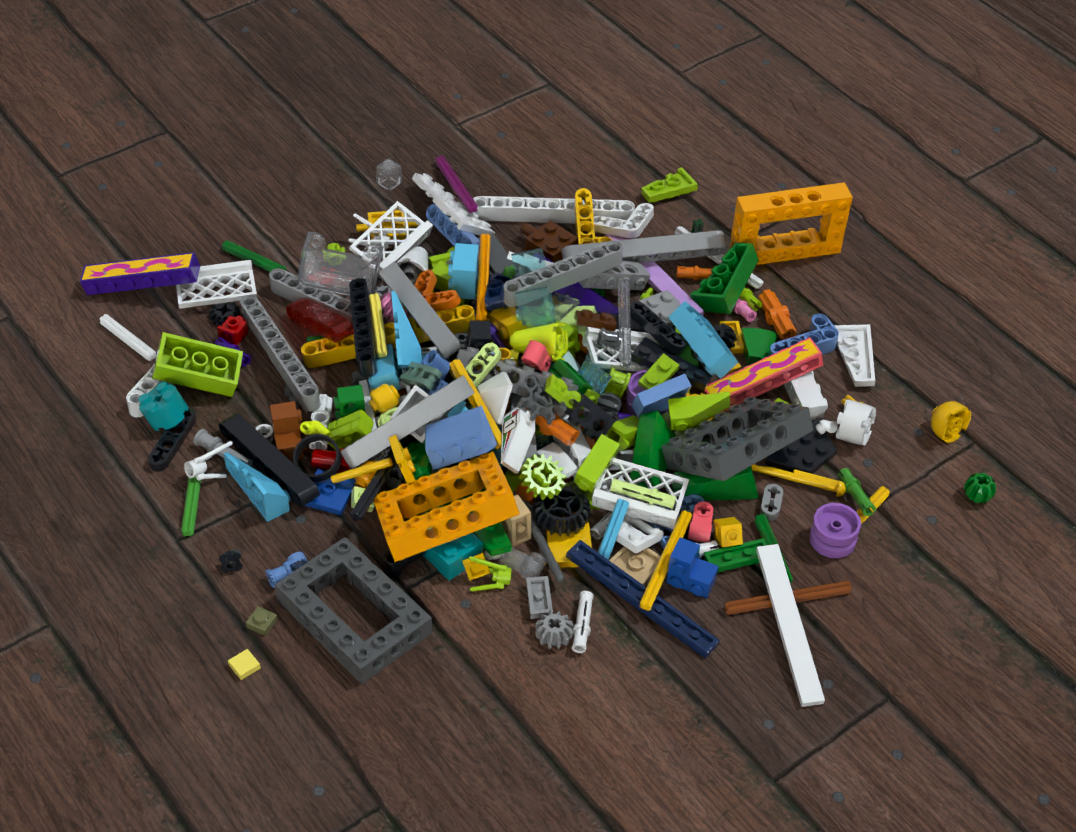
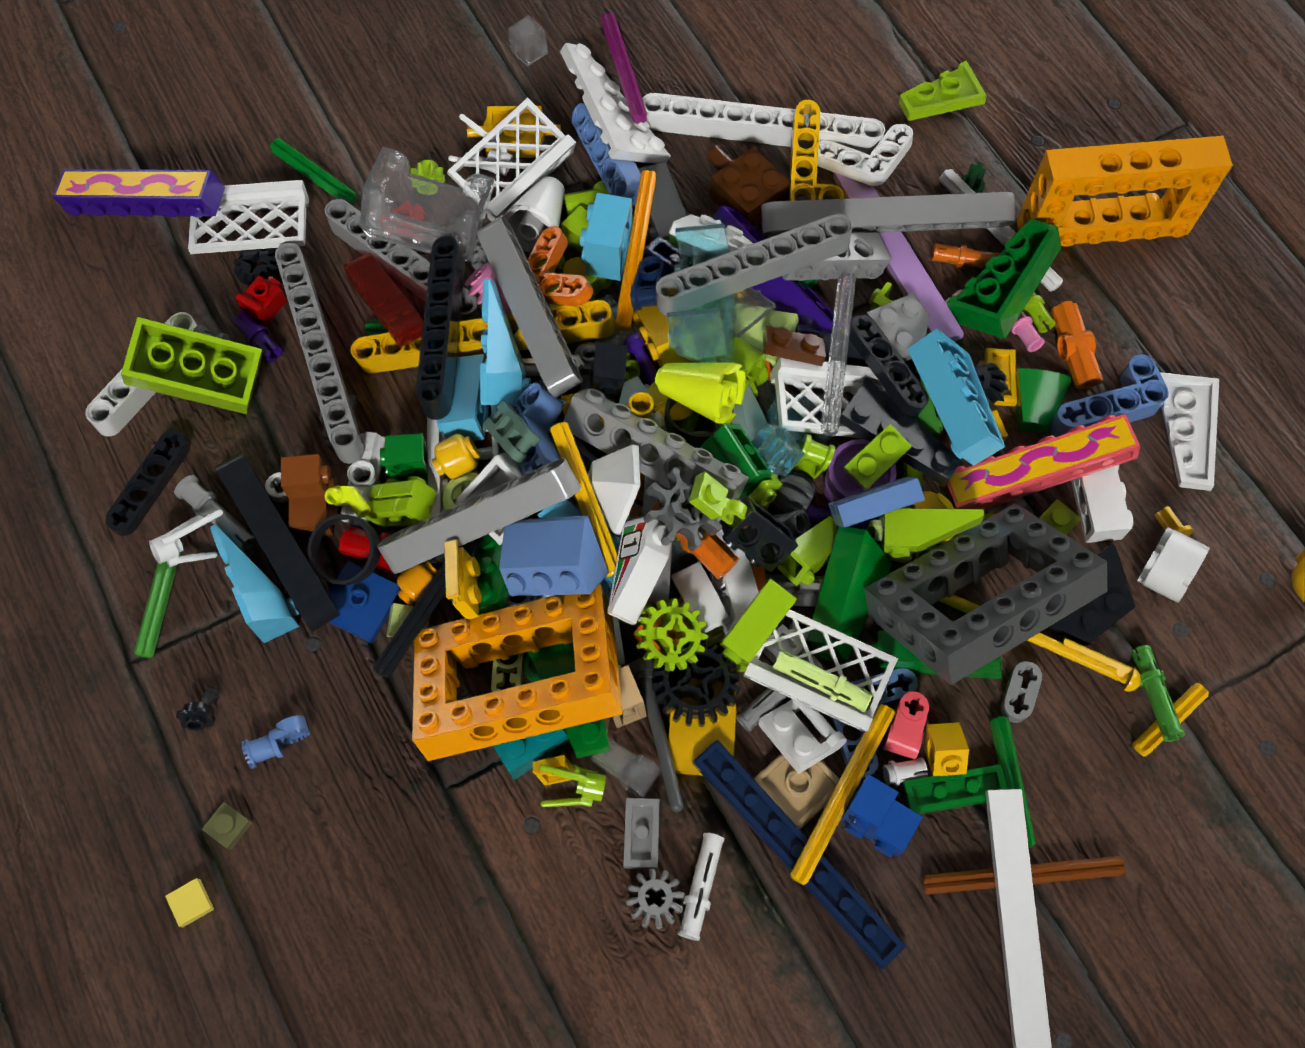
camera: 10 degrees right, 20 degrees up
(127, 337) = (108, 290): white axle -> none
(163, 406) = (135, 433): teal brick -> none
(361, 470) = (403, 583): yellow bar -> none
(361, 658) = (357, 919): dark grey brick -> none
(378, 325) = (463, 325): light yellow axle -> none
(492, 361) = (607, 413): yellowish green beam -> none
(536, 356) = (689, 422): coral piece -> none
(609, 338) = (811, 381): dark grey bush -> none
(613, 528) = (768, 730): medium azure axle -> none
(825, 425) = (1130, 565): white arm -> none
(835, 530) = (1115, 765): medium lavender wheel -> none

